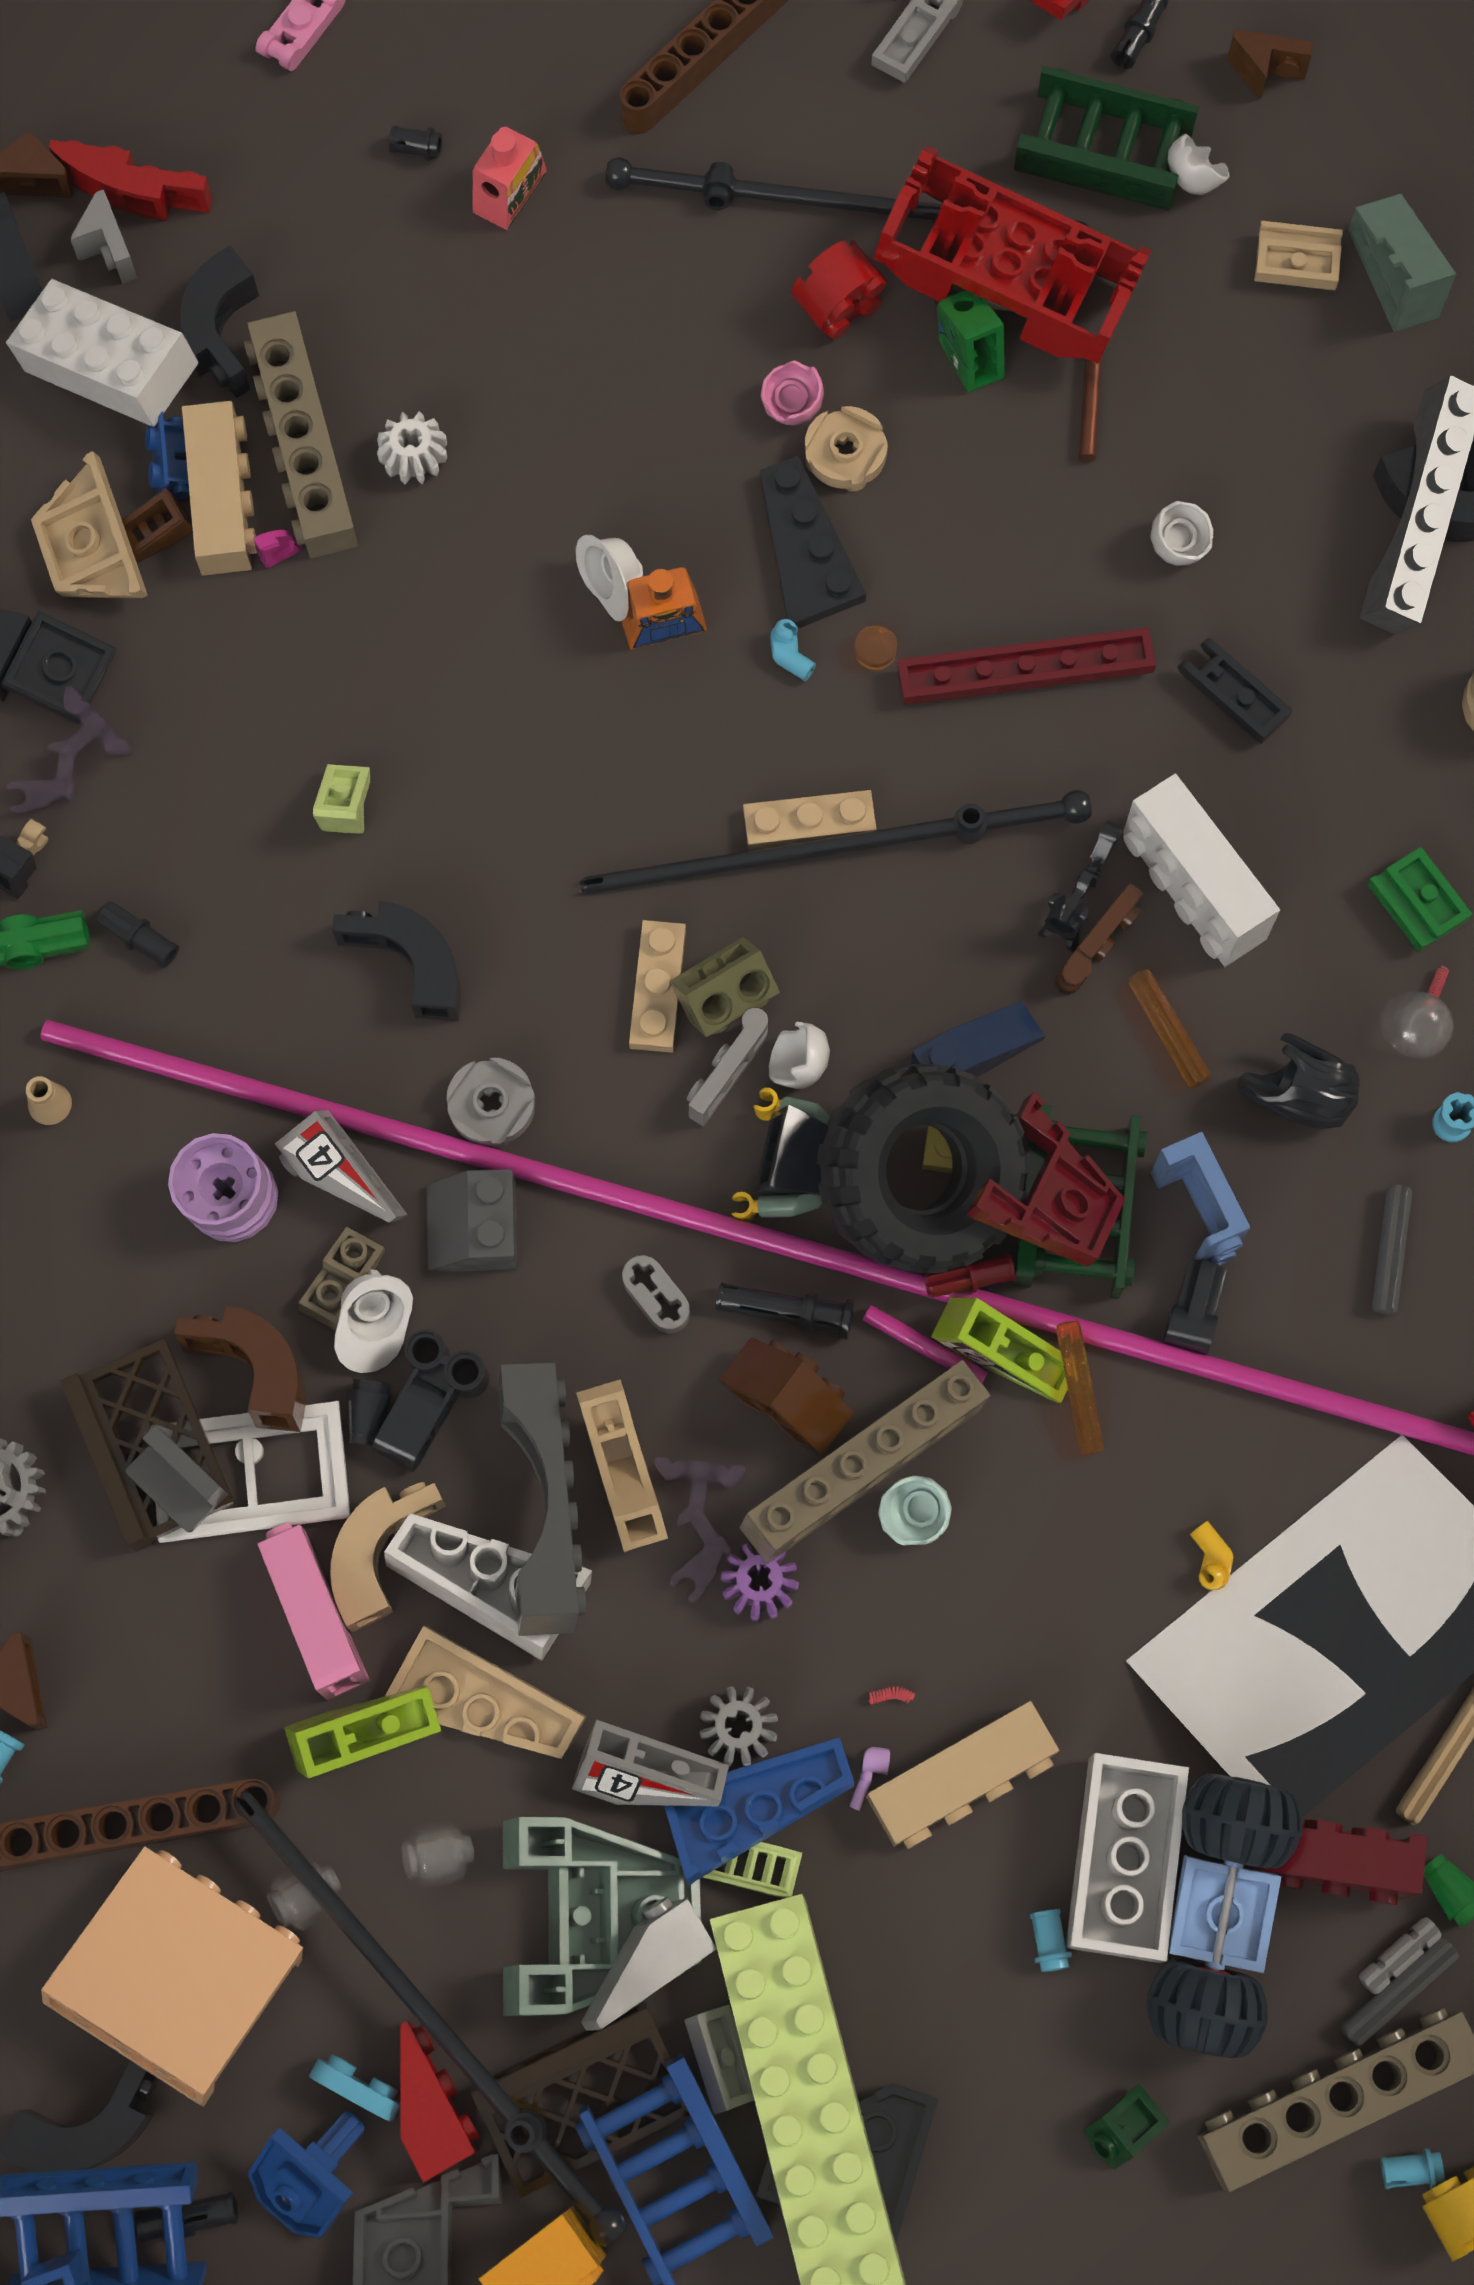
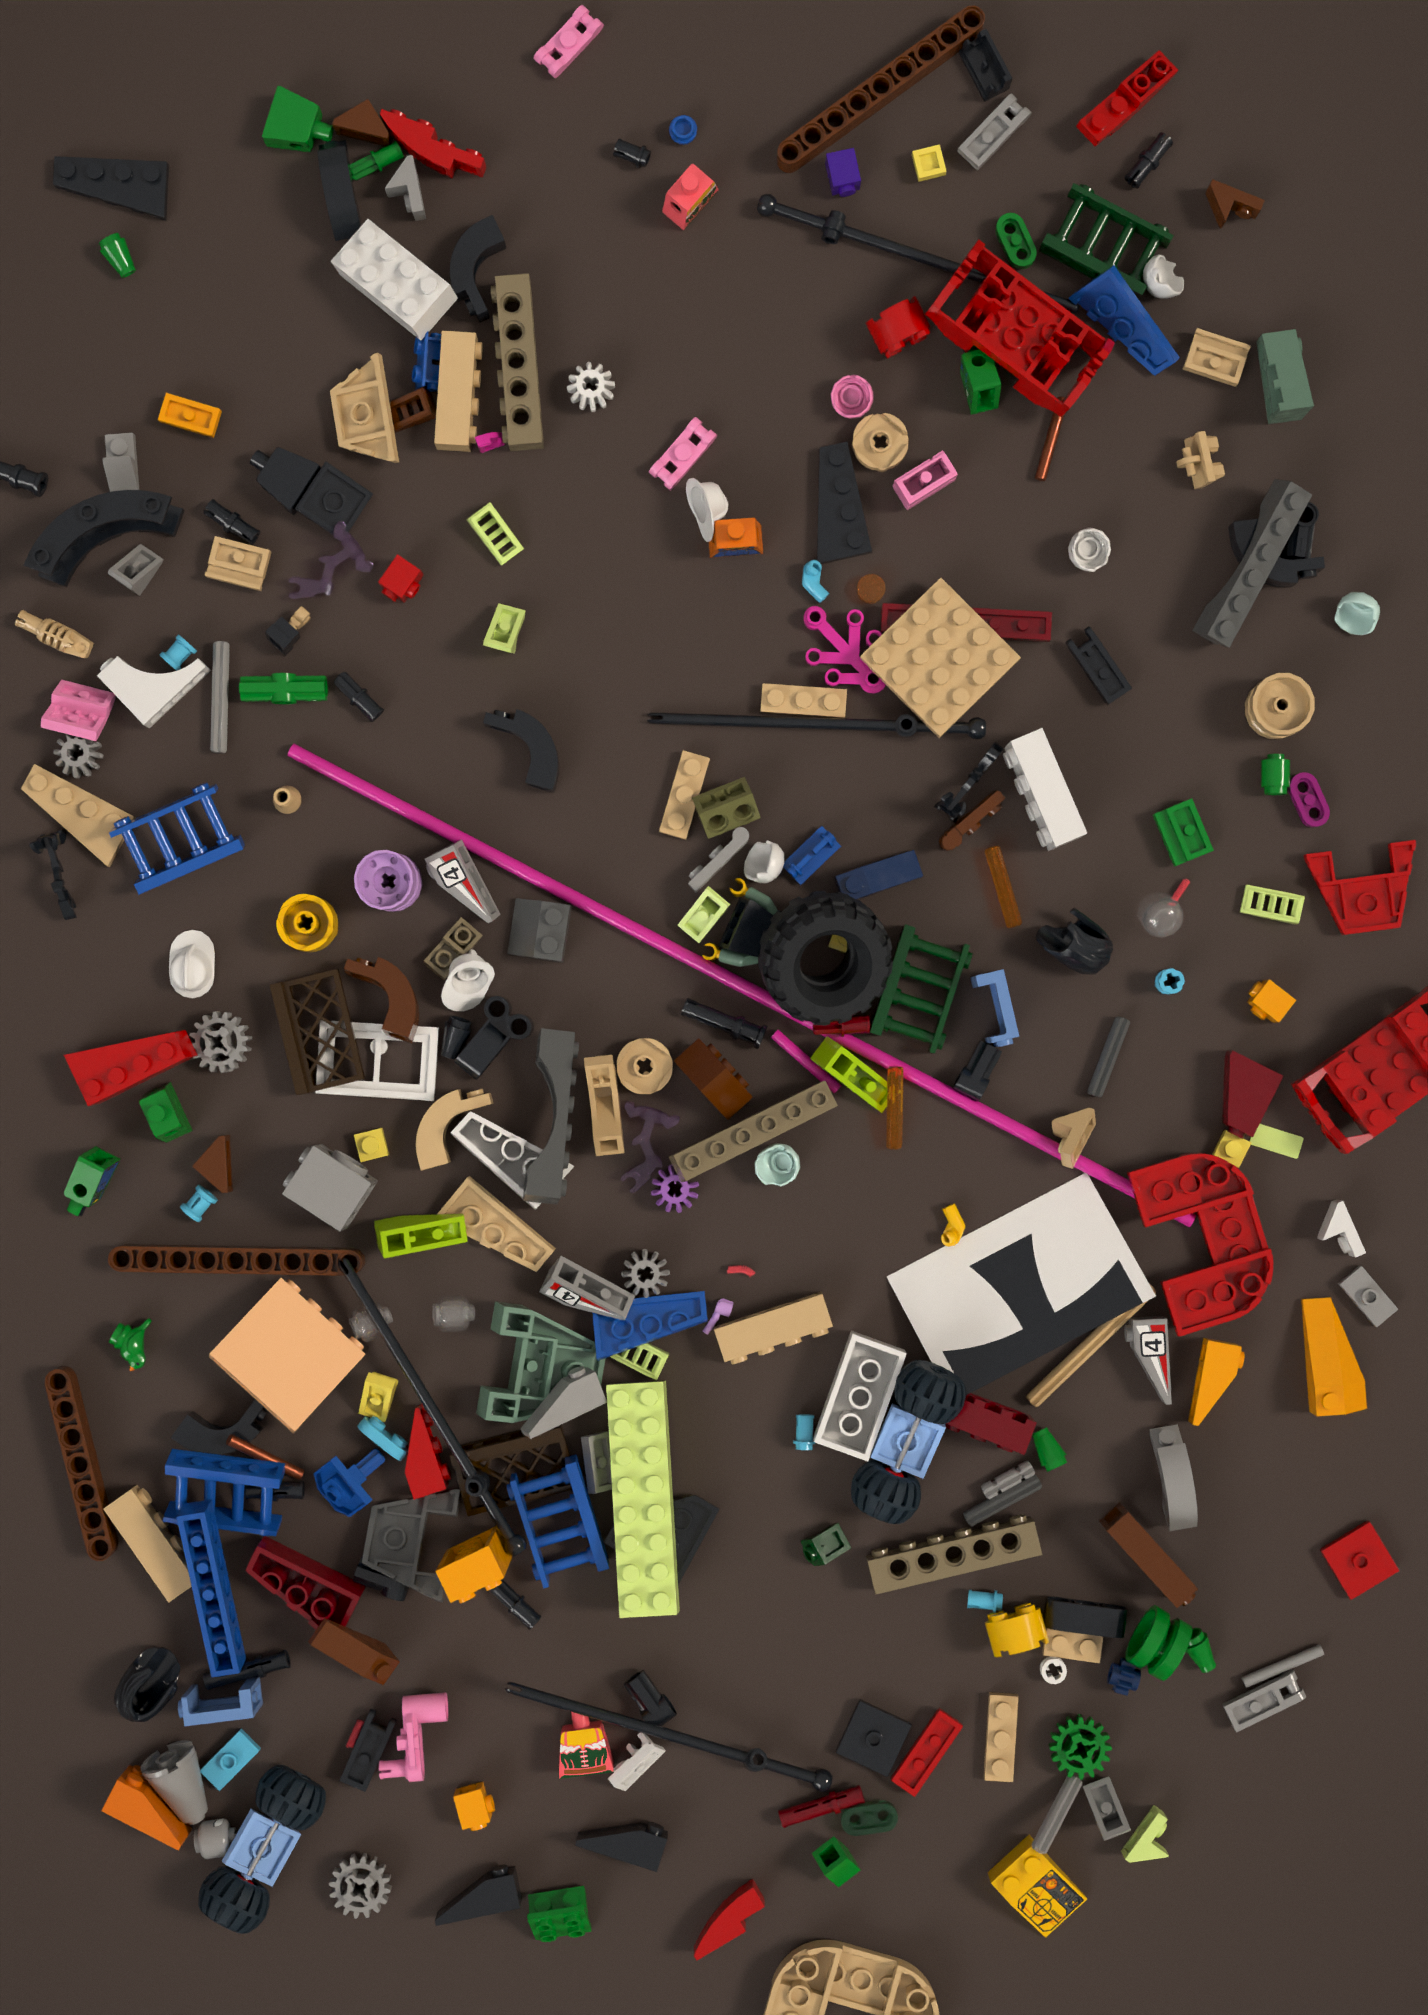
camera: 10 degrees right, 15 degrees up
(54, 213) = (376, 161): none -> green axle
(81, 1280) = (292, 915): none -> yellow brick
(152, 2155) = (260, 1454): none -> copper bar
(175, 756) = (401, 580): none -> red brick
(175, 1481) = (331, 1060): dark grey panel -> none
(203, 1678) = (329, 1185): none -> light grey brick
(259, 1608) = (371, 1144): none -> light yellow plate
(294, 639) = (496, 518): none -> yellowish green slope
(312, 1612) = (400, 1154): bright pink slope -> none
(334, 2017) = (377, 1395): none -> light yellow slope
(481, 101) = (683, 129): none -> blue plate
(485, 1078) = (581, 853): light grey plate -> none
(563, 515) = (683, 453): none -> bright pink plate
(648, 1301) = (639, 1000): light grey beam -> none
(662, 1376) = (641, 1050): none -> tan plate
(717, 113) = (843, 172): none -> dark purple brick
(722, 1148) = (703, 914): none -> yellowish green slope
(835, 83) = (929, 163): none -> light yellow plate
(860, 740) = (847, 653): none -> dark pink plant
(868, 1035) = (811, 855): none -> blue hinge
(922, 482) = (925, 480): none -> bright pink brick
(984, 158) = (1016, 242): none -> green plate
(999, 716) = (940, 657): none -> tan plate
(1069, 1202) = (911, 996): dark red wing -> none
(1143, 212) = (1123, 315): none -> blue wing
(1309, 389) = (1198, 459): none -> tan hips
(1369, 1371) = (1075, 1131): none -> tan slope

